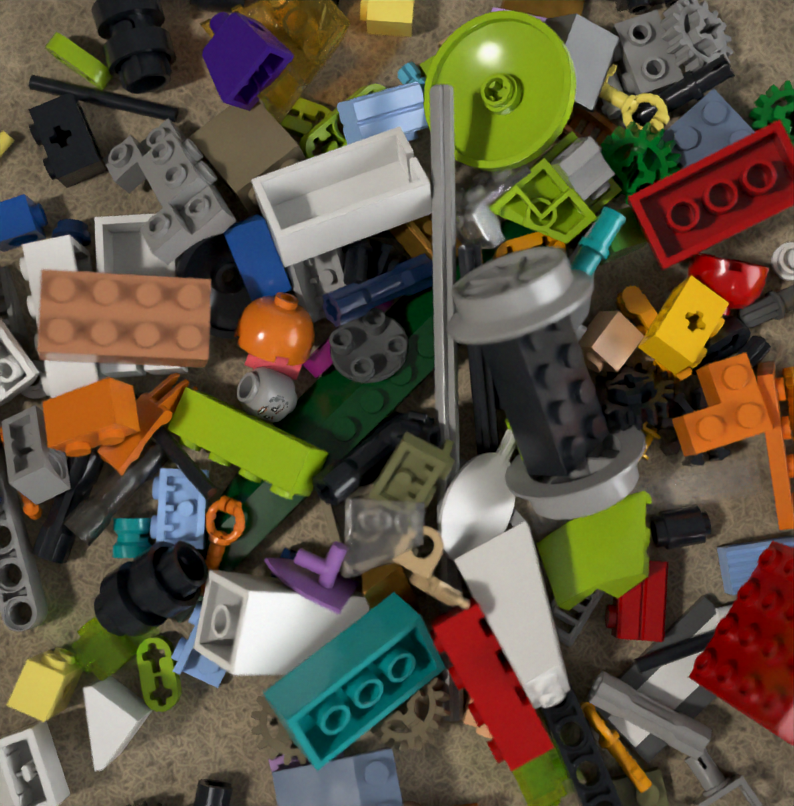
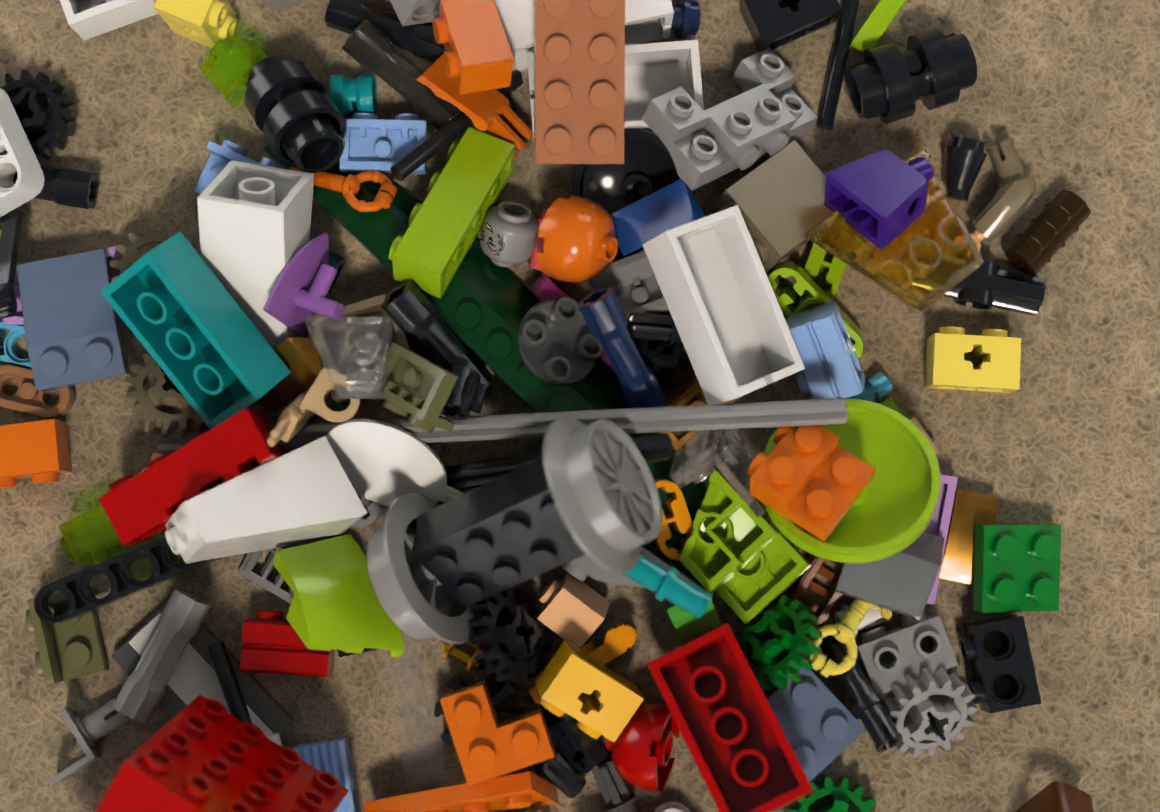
camera: 90 degrees right, 0 degrees up
(112, 718) = (160, 79): white slope -> none
(149, 674) = (208, 118): lime beam -> none
(500, 122) = (809, 478): none -> orange plate
(584, 168) = (761, 574): light grey arch -> none
(610, 740) = (135, 613): light orange piece -> none
(680, 527) = (367, 692): black brick -> none

